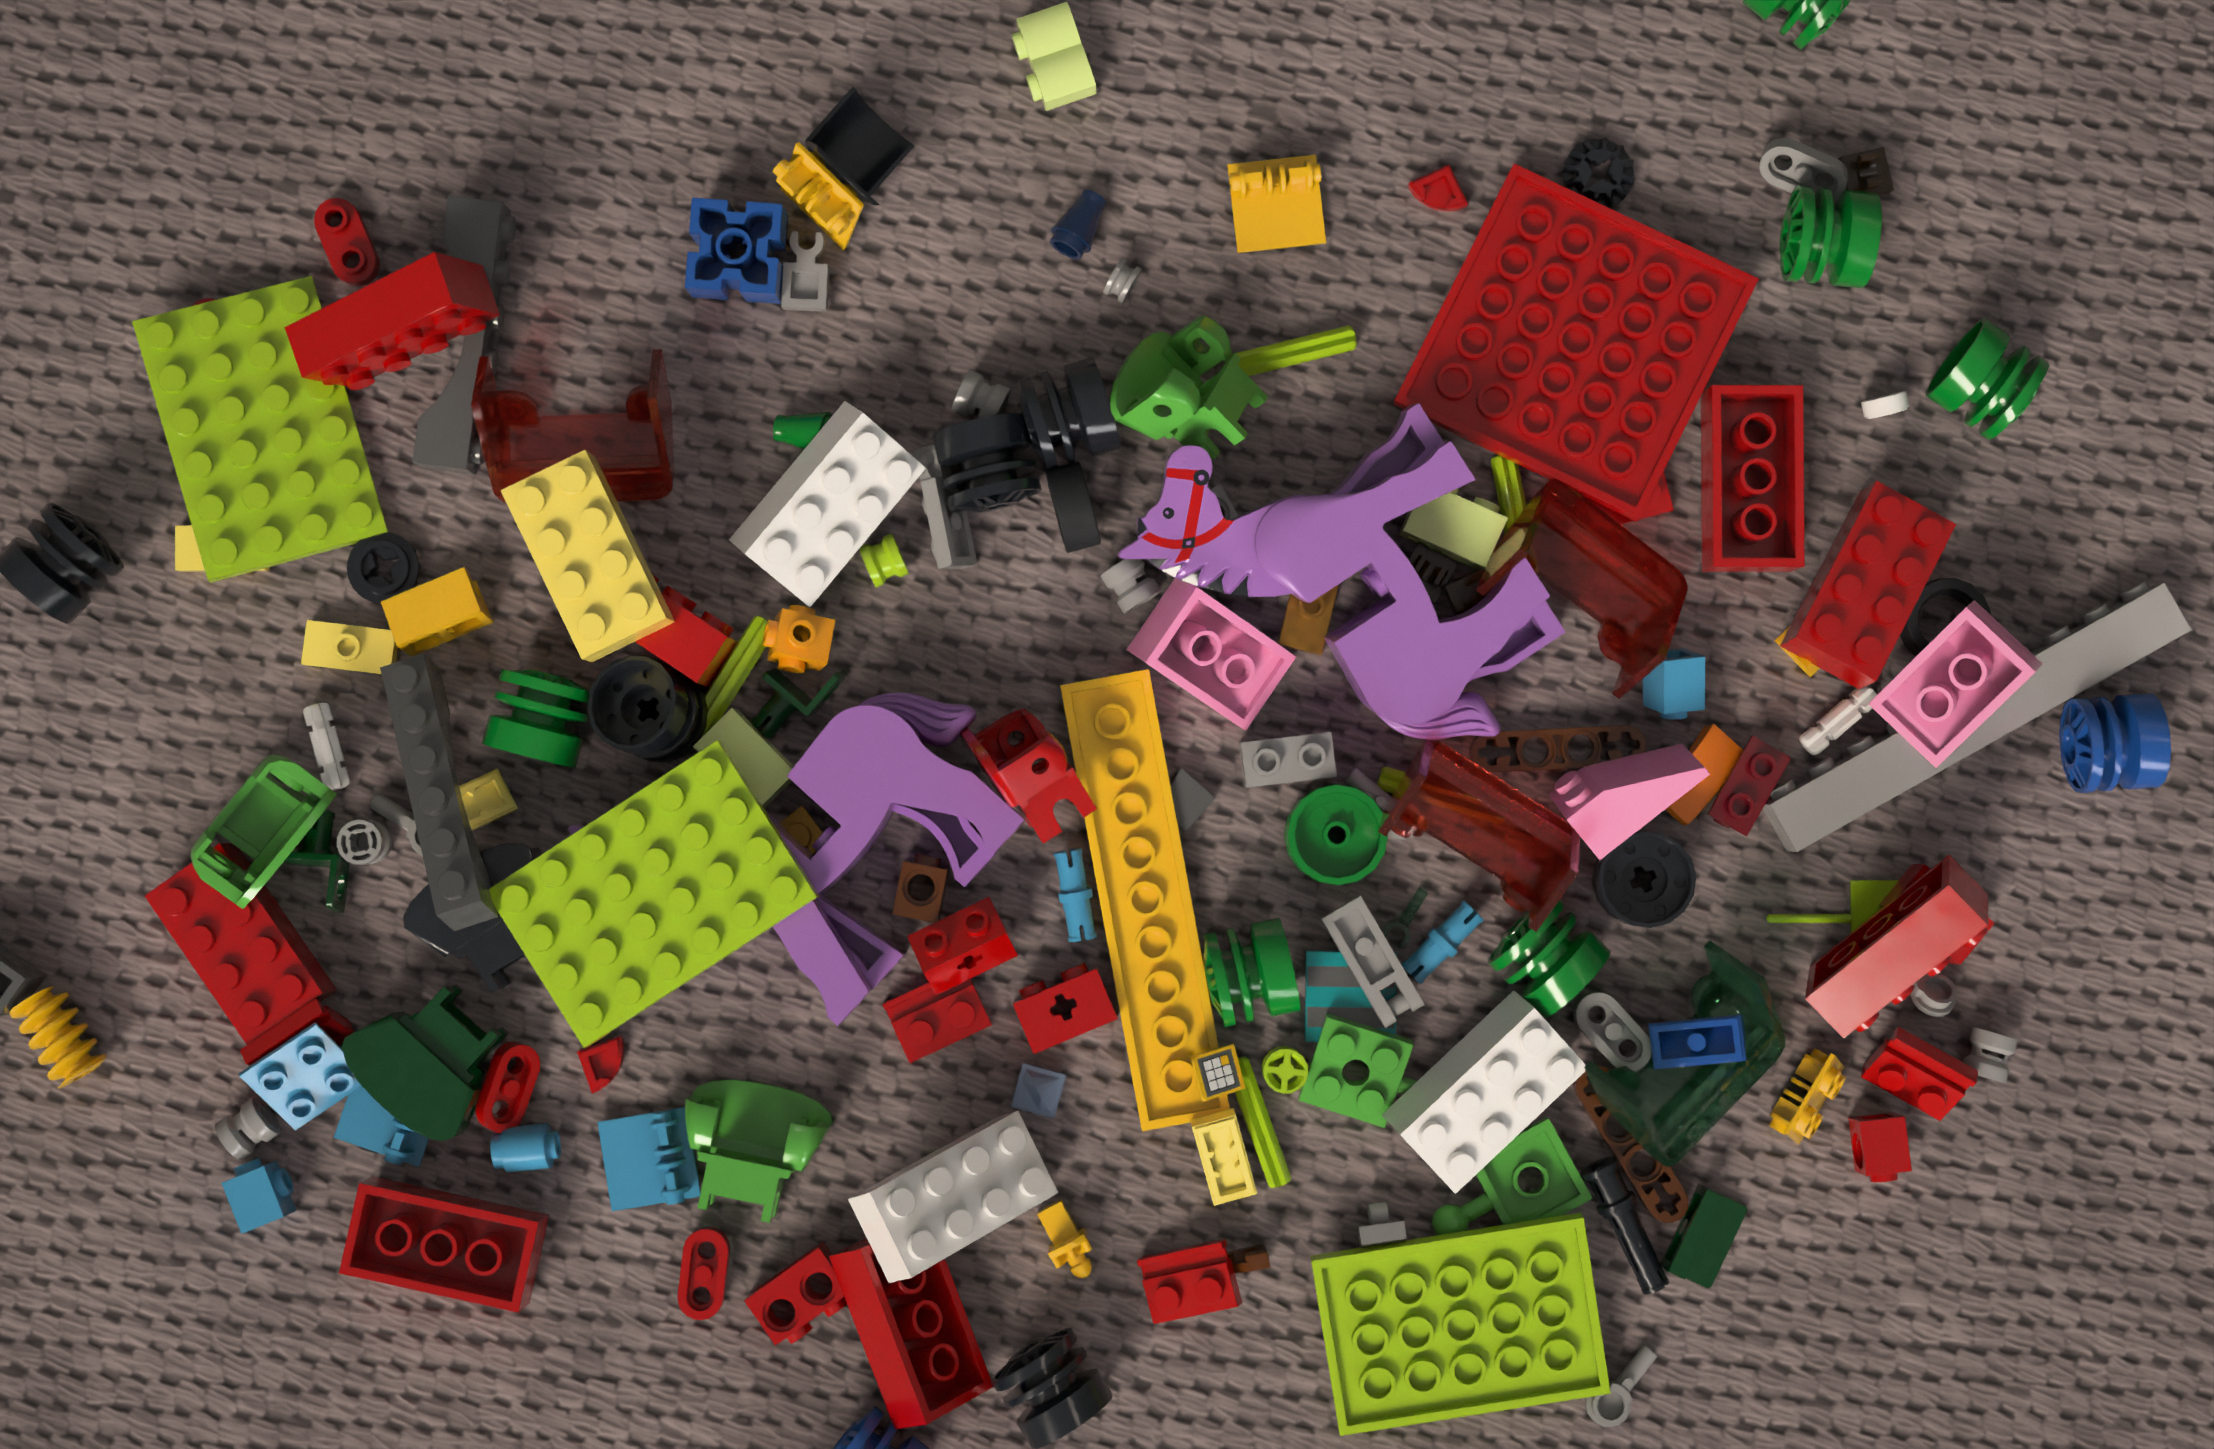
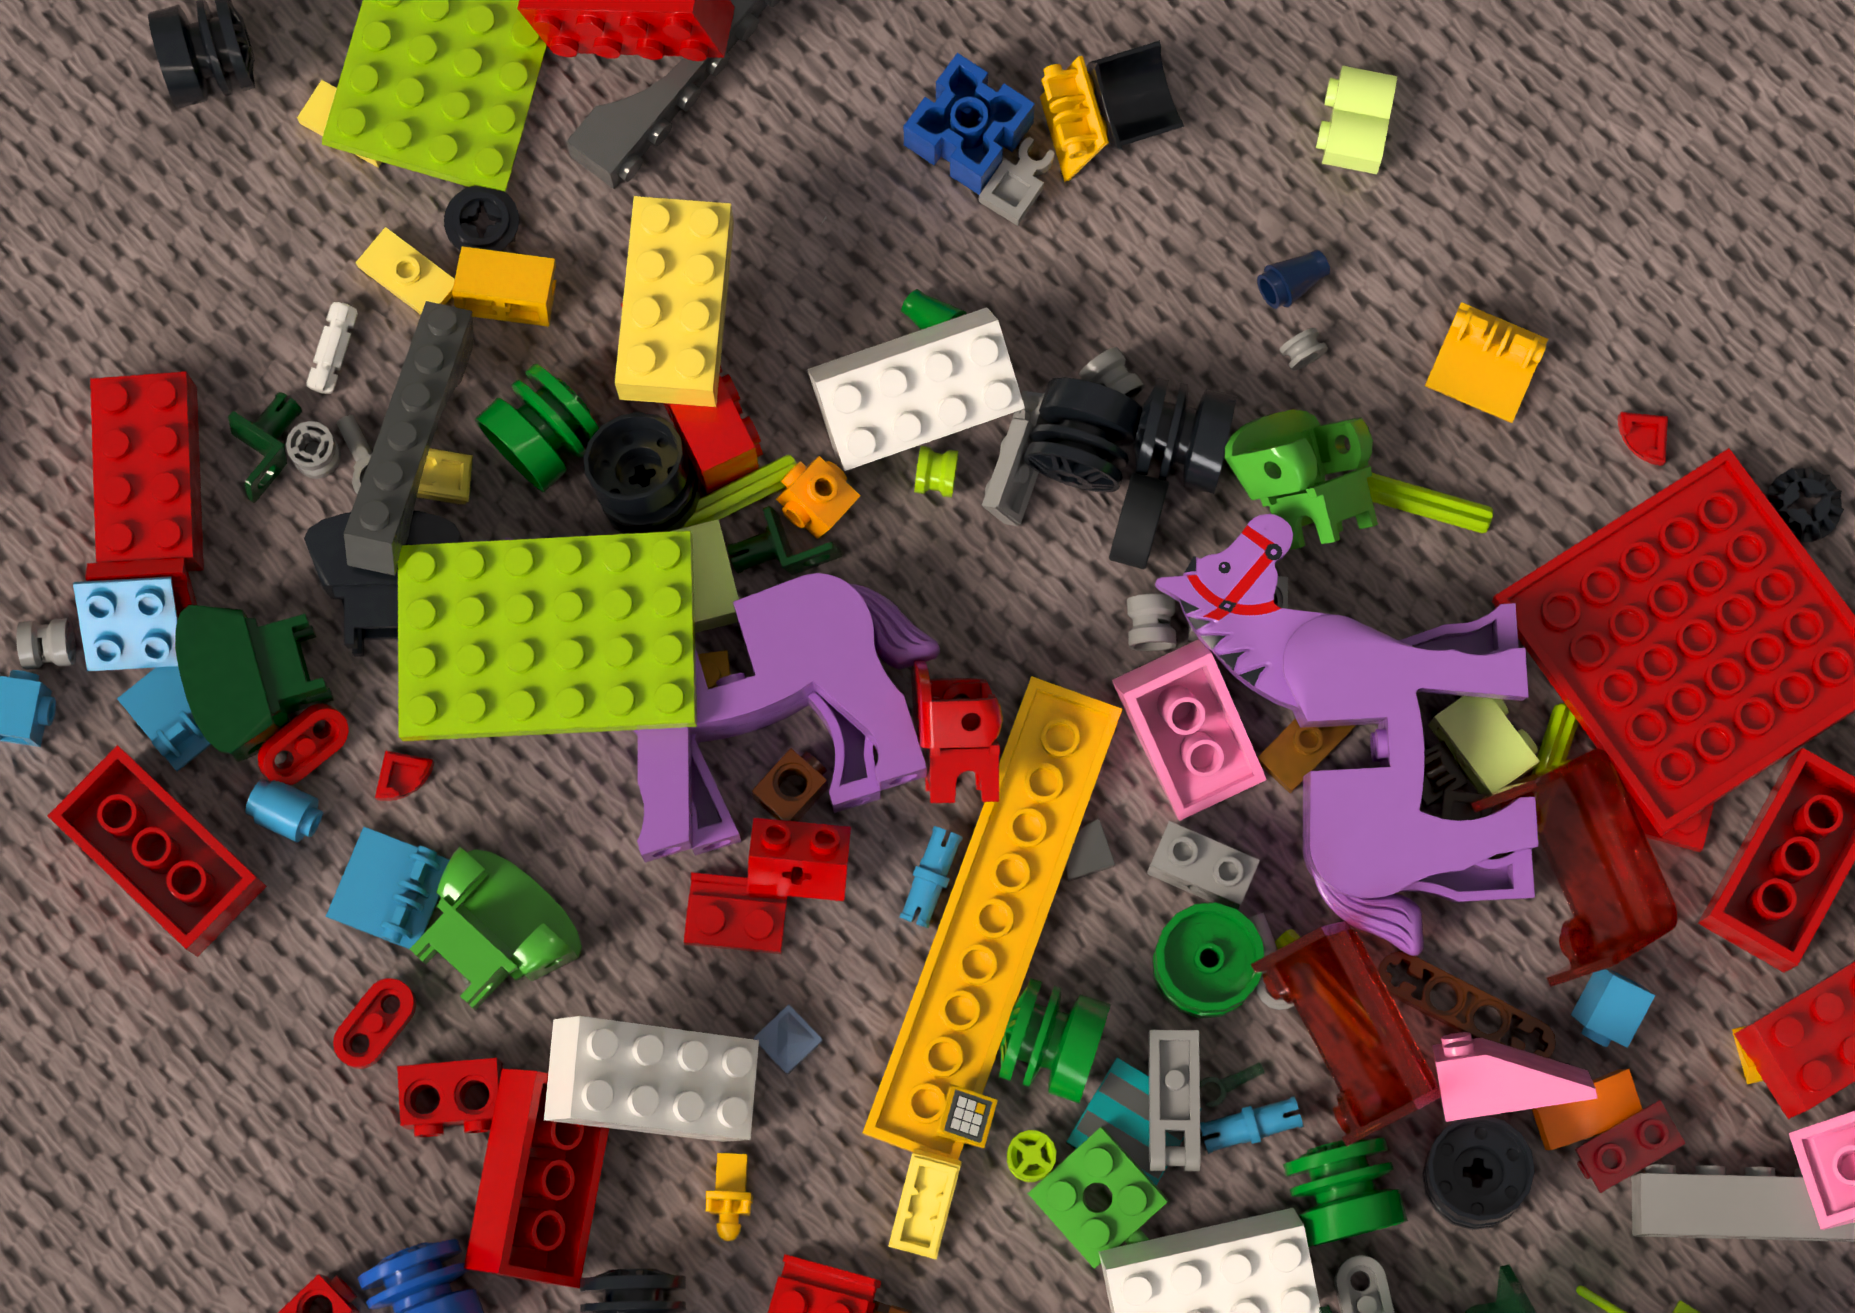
camera: 30 degrees right, 10 degrees down
(263, 823) = (234, 374): bright green piece -> none
(629, 446) = (767, 243): clear red windscreen -> none
(1048, 1028) = (878, 993): red brick -> none
(1261, 1128) = (976, 1199): lime axle -> none
(1837, 720) = (1750, 1138): white axle -> none

